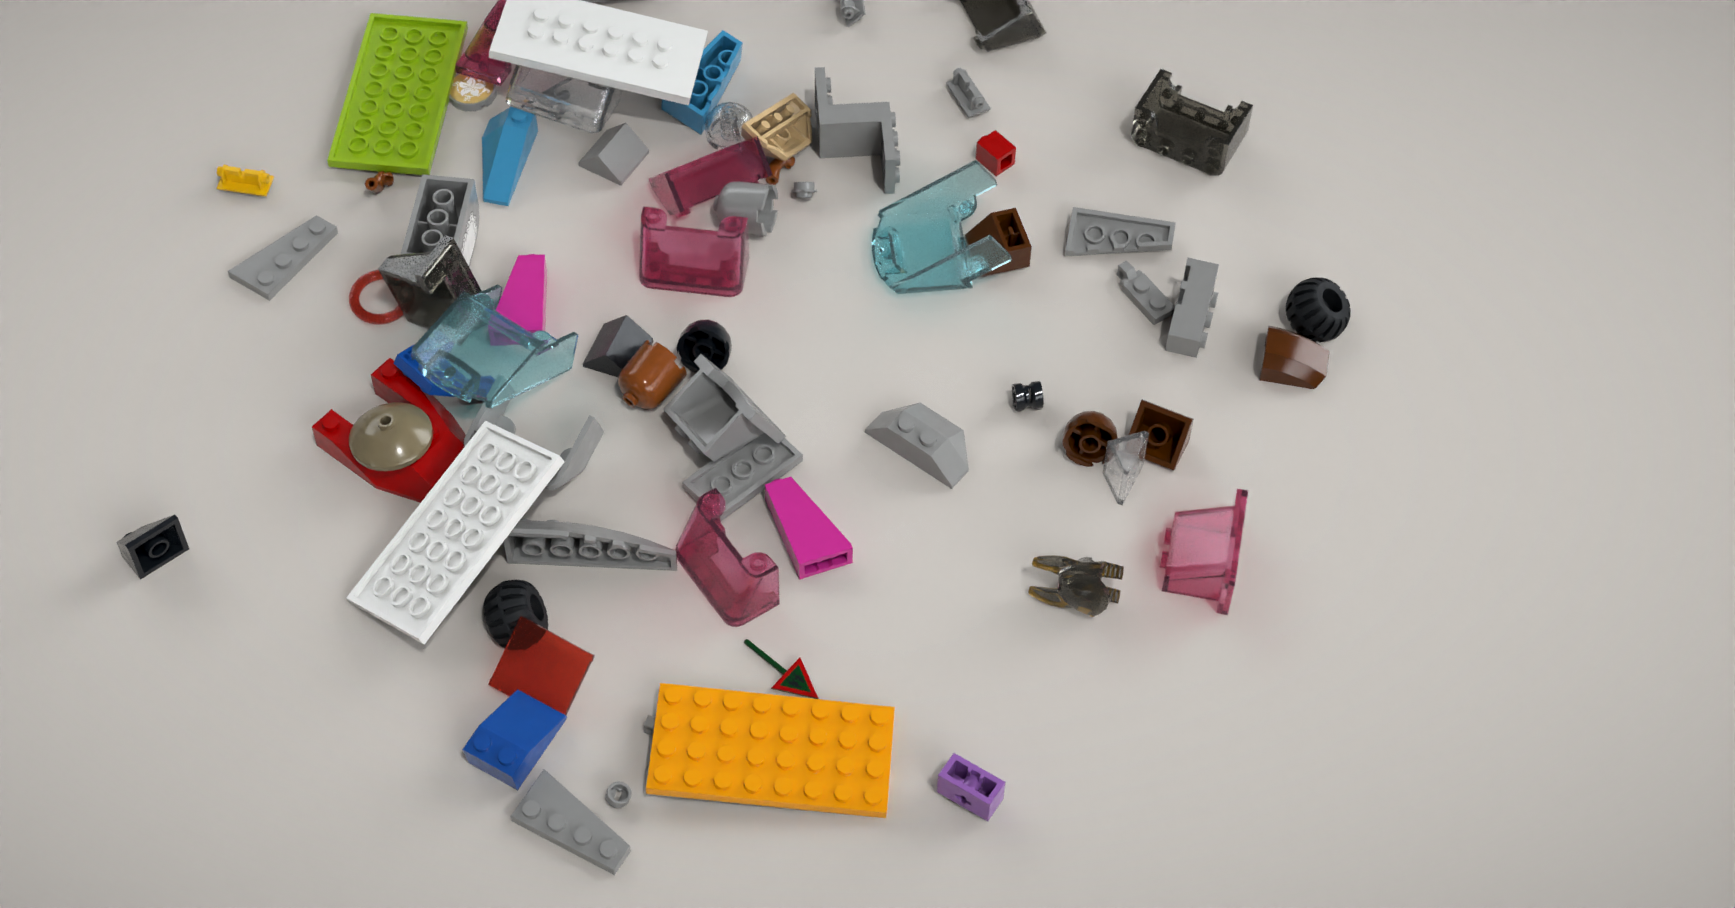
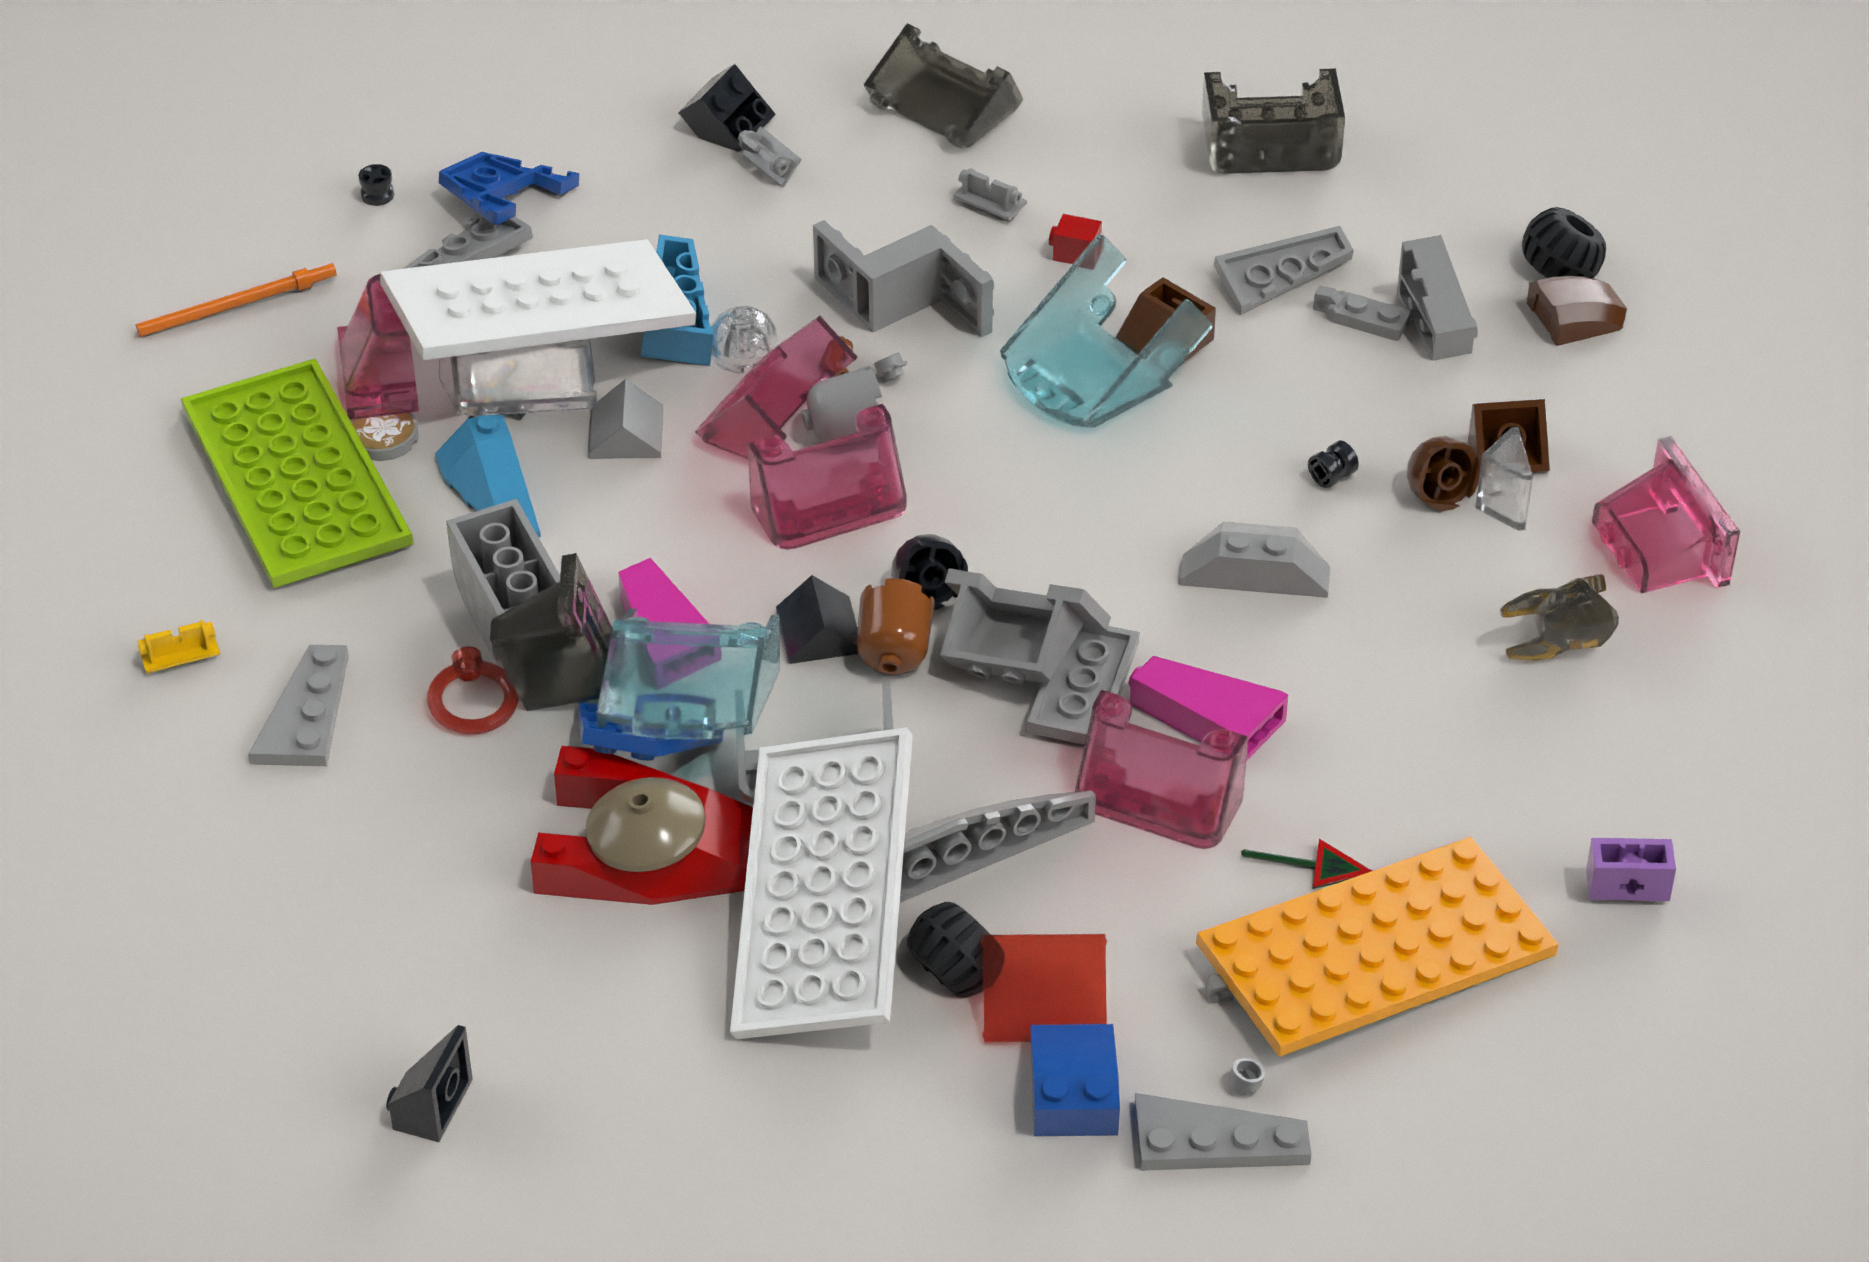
camera: 30 degrees left, 10 degrees down
(378, 182) = (358, 574): dark orange arm -> none
(781, 128) = (808, 299): tan wedge -> none

